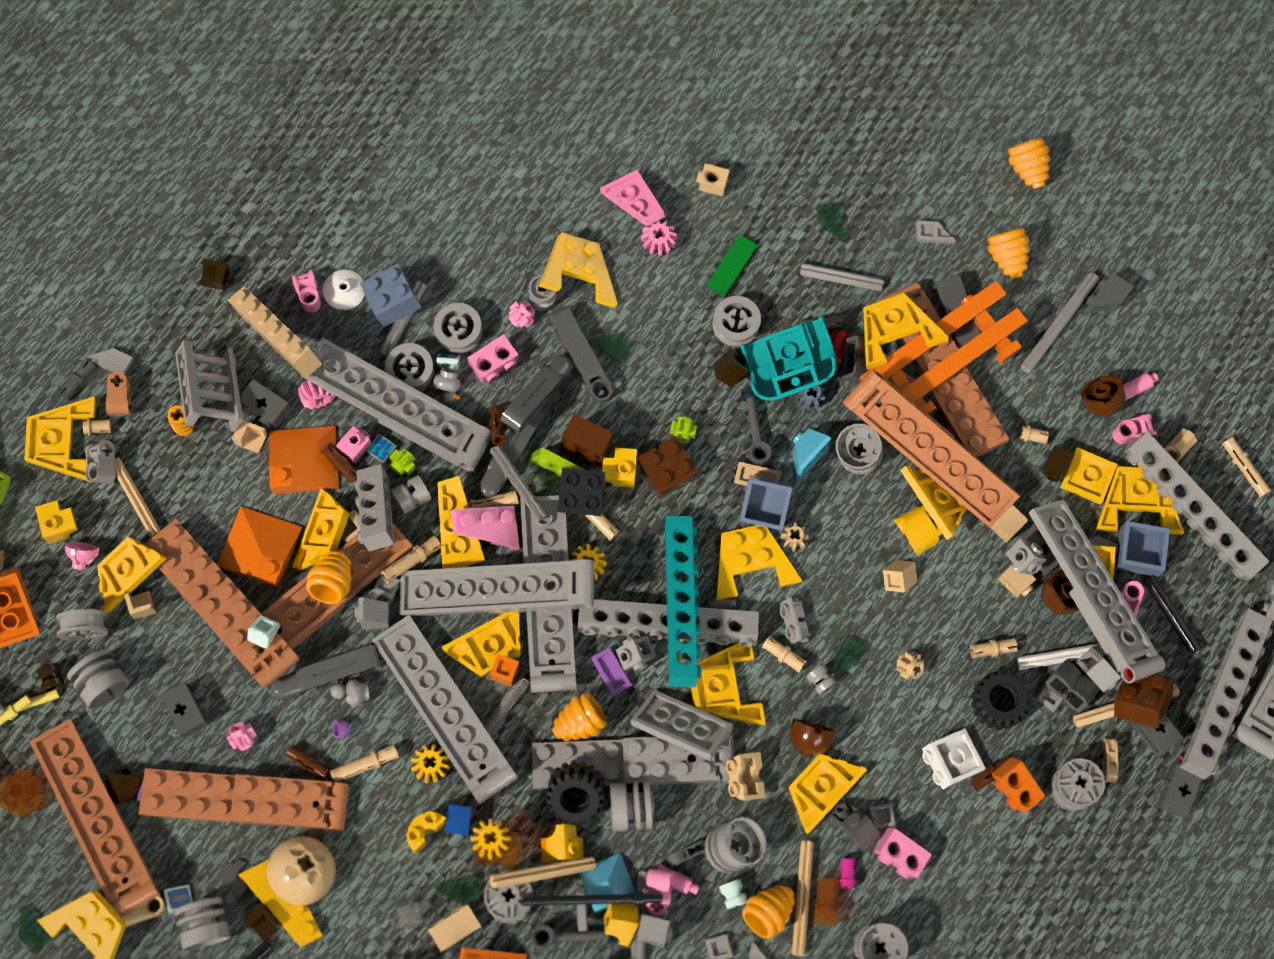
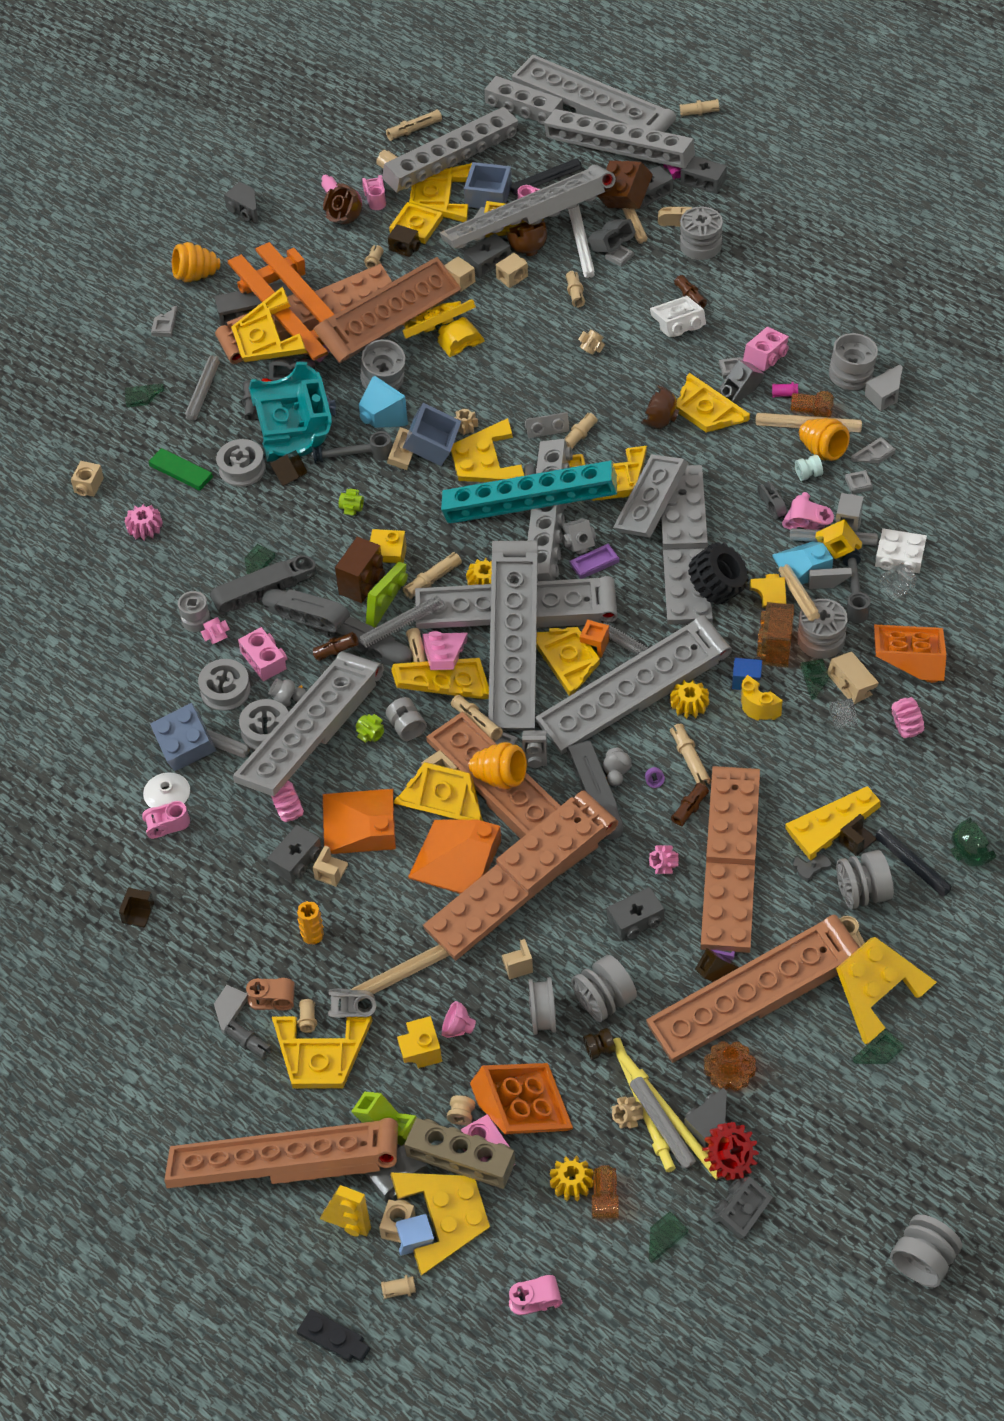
camera: 80 degrees left, 20 degrees down
(125, 569) = (479, 971): yellow wing -> none
(177, 897) = (839, 909): slope -> none
(192, 393) = (274, 889): light grey fence -> none
(262, 631) = (559, 813): light aqua slope -> none
(275, 332) = (219, 825): tan brick -> none
(298, 882) = (802, 800): tan piece -> none
(340, 462) = (366, 782): reddish brown pin -> none
(354, 444) = (347, 771): bright pink brick -> none
(374, 508) = (410, 735): light grey brick -> none
(381, 449) = (352, 751): tile -> none
(449, 361) = (259, 691): light aqua slope -> none
(488, 831) = (771, 619): yellow gear -> none
(580, 719) = (644, 575): light orange piece -> none
(581, 492) = (415, 567): black hinge -> none
(582, 261) = (168, 581): yellow wing -> none
(631, 806) = (733, 527): light grey wheel -> none
(634, 197) = (99, 537): bright pink wing -> none
(637, 899) = (820, 523): black bar -> none
(667, 468) = (390, 510): reddish brown piece -> none
(735, 845) = (765, 456): light grey wheel -> none
(744, 776) = (705, 456): tan cylinder -> none
(818, 675) = (601, 405): light grey wheel -> none
(848, 656) = (580, 389): clear green tile -> none
(900, 576) = (506, 348): tan panel -> none
(1014, 687) = (624, 281): black tyre -> none
(1021, 782) = (702, 270): orange brick -> none
(1026, 557) = (490, 256): light grey brick -> none
(1031, 161) = (104, 246): light orange piece -> none
(1060, 322) = (260, 235): light grey axle -> none
(1098, 669) = (598, 211): light grey brick -> none

